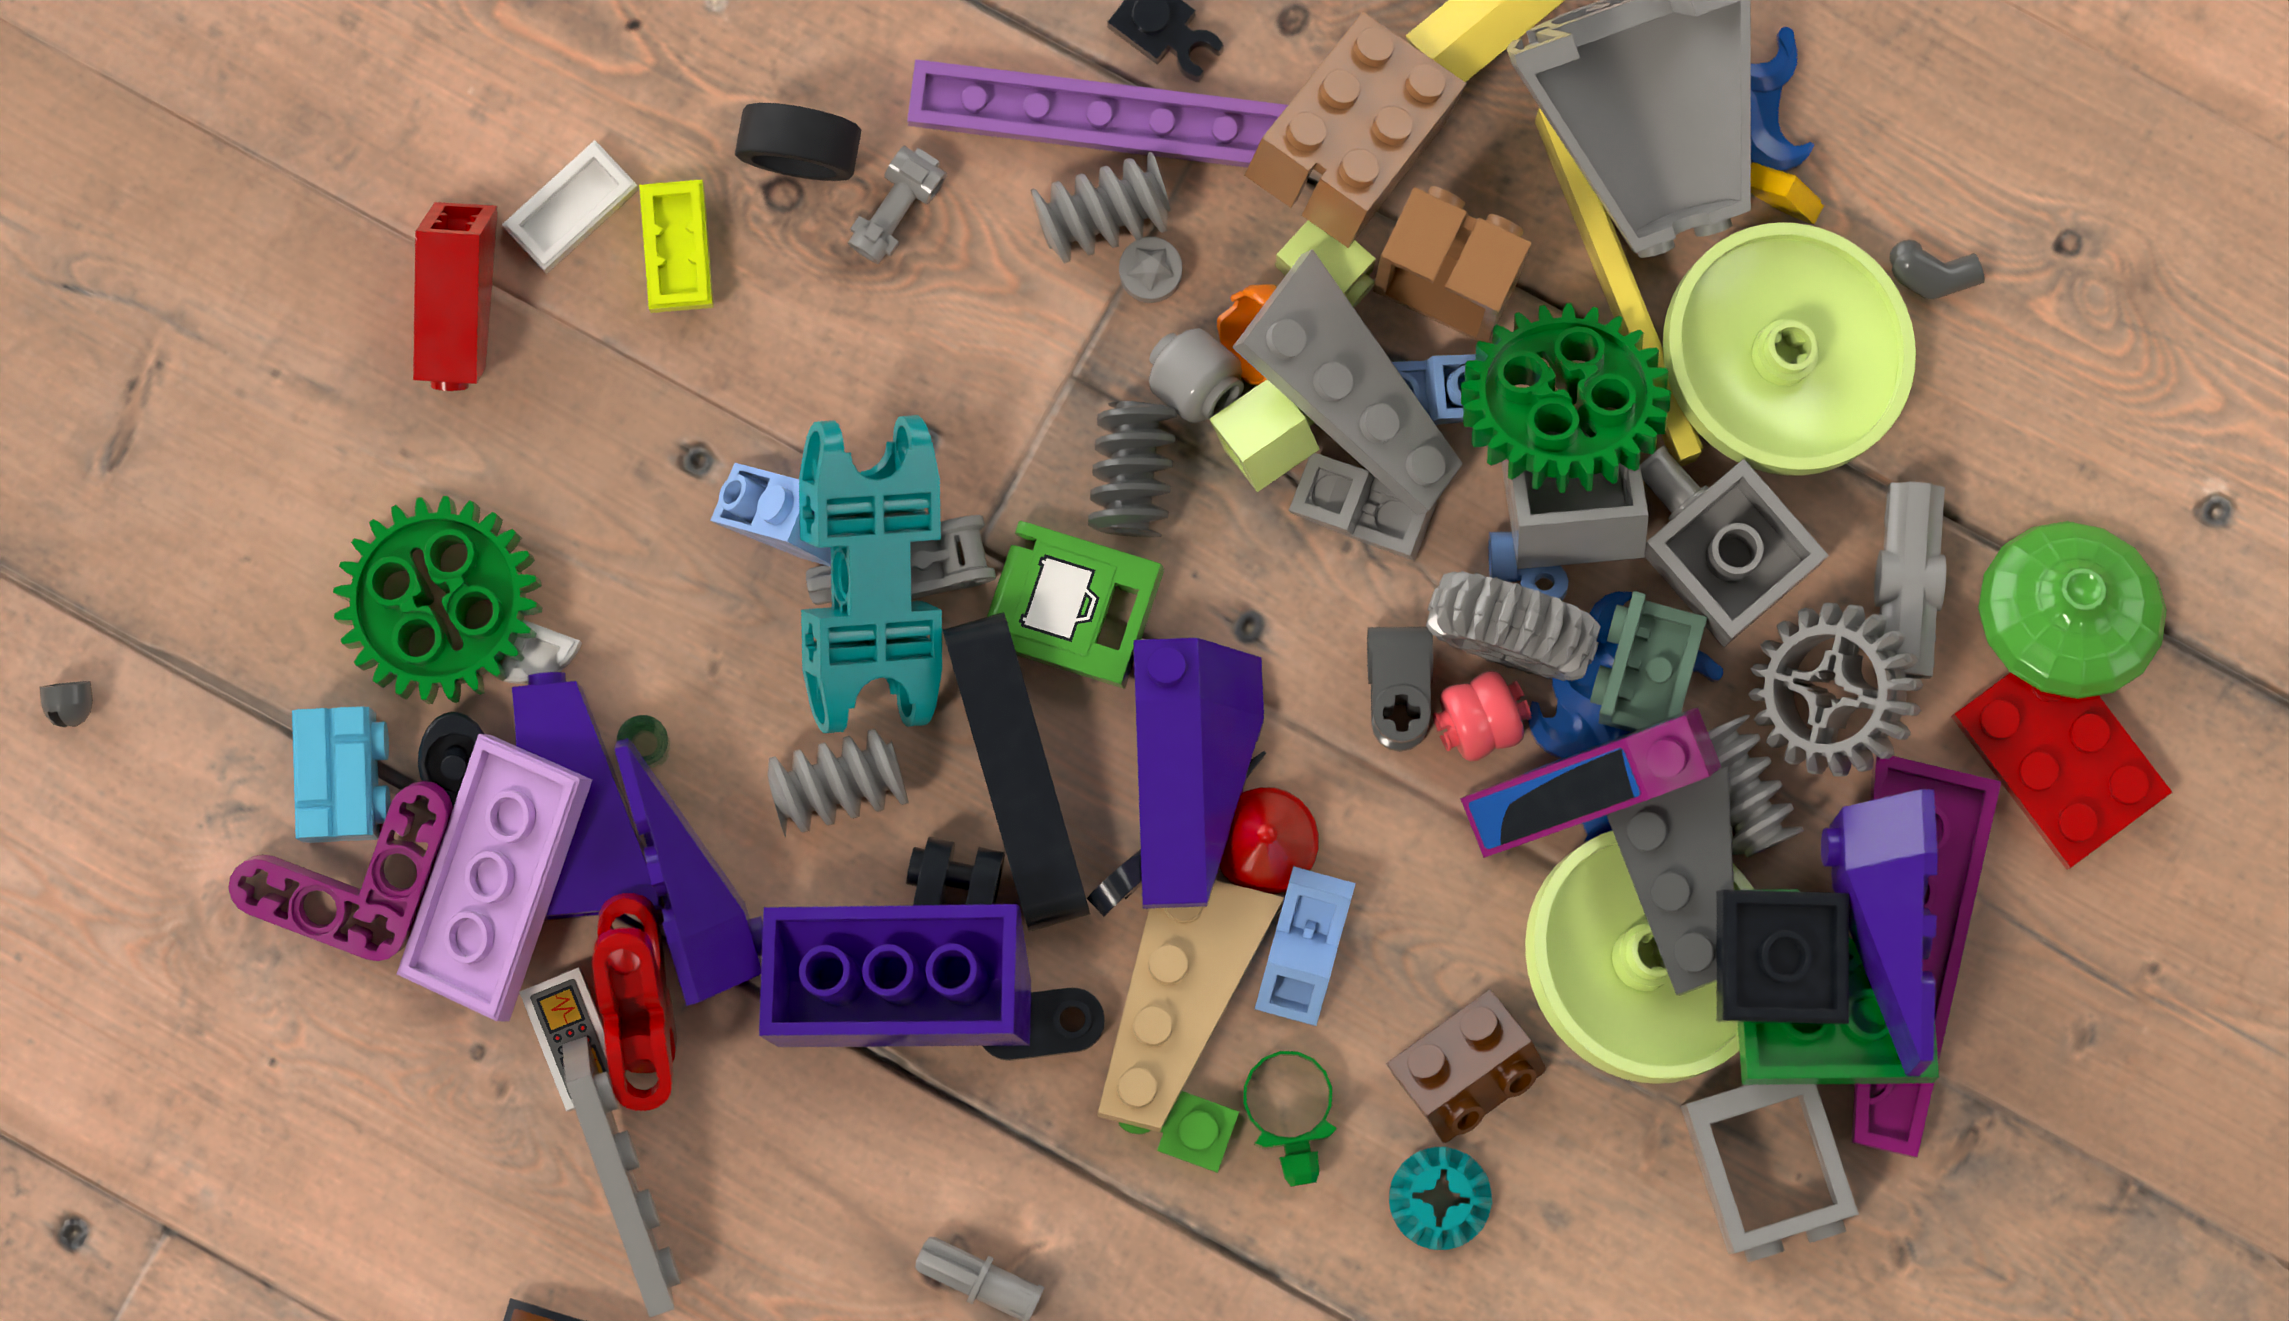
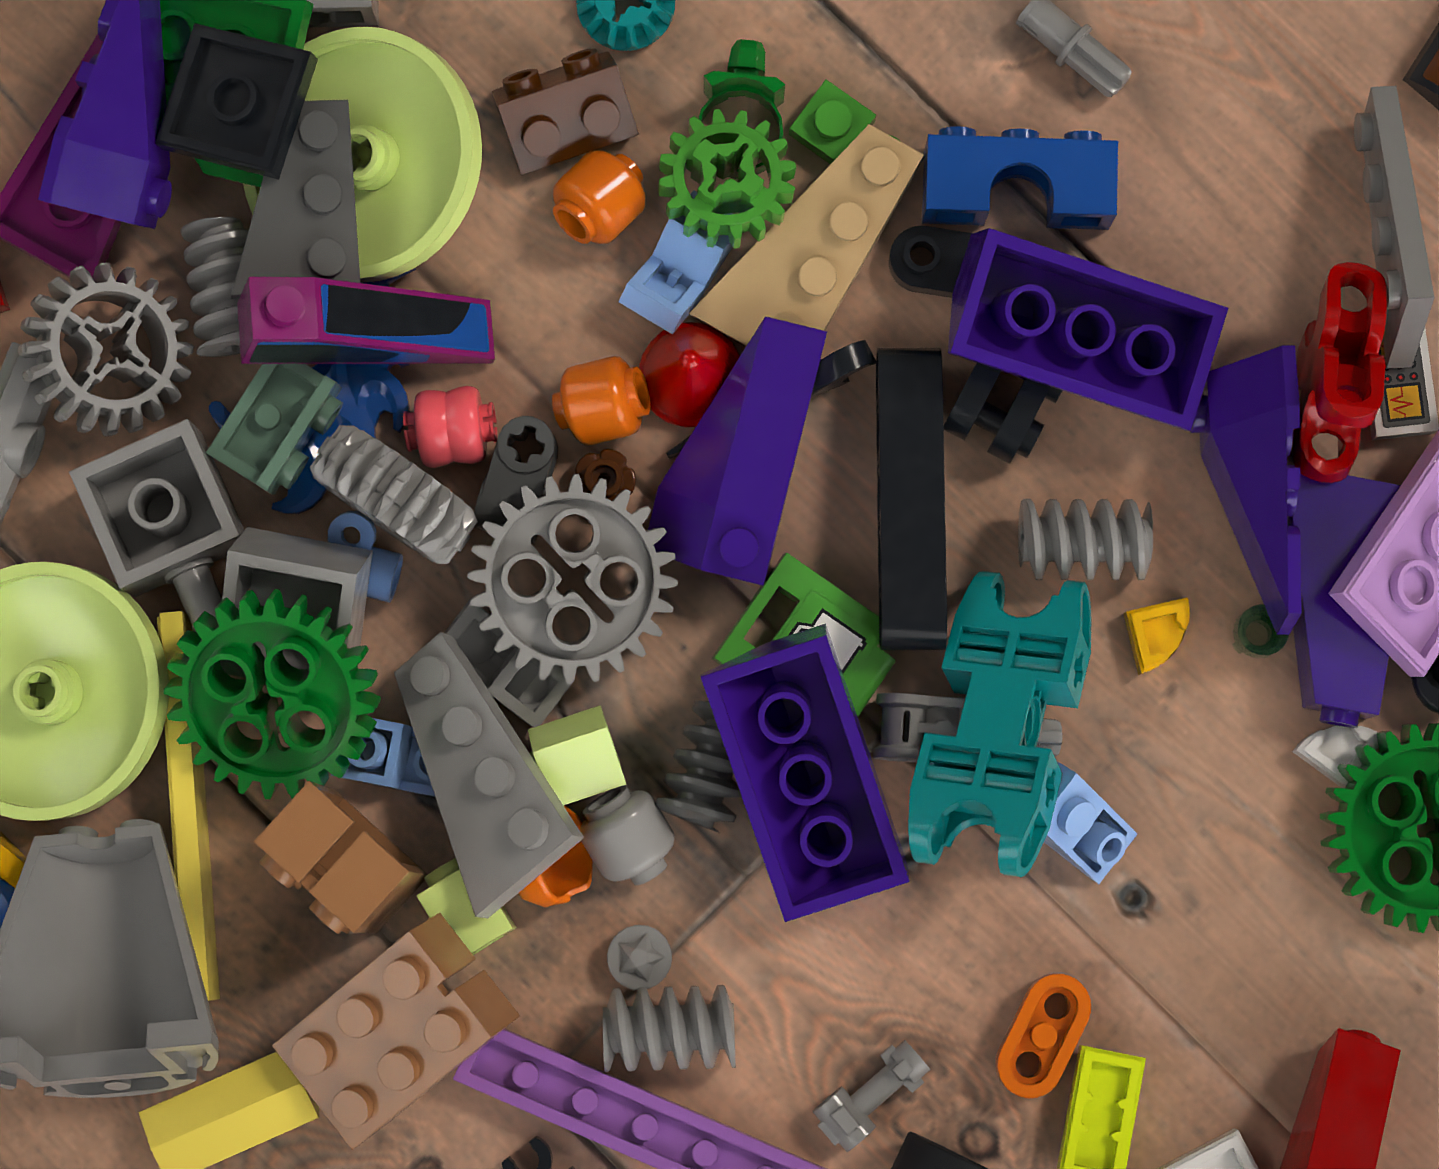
camera: 165 degrees left, 0 degrees up
(742, 718) = (1156, 632): none -> yellow tile
(750, 305) = (1046, 1037): none -> orange plate
(1041, 474) = (805, 773): none -> dark purple slope
(1053, 1116) = (1072, 173): none -> blue arch
(1312, 1041) = (746, 195): none -> bright green gear
(1318, 728) = (610, 463): none -> reddish brown plate
(1343, 784) = (601, 400): none -> orange head
(1349, 549) = (529, 618): none -> light grey gear
(1405, 985) = (599, 197): none -> orange head

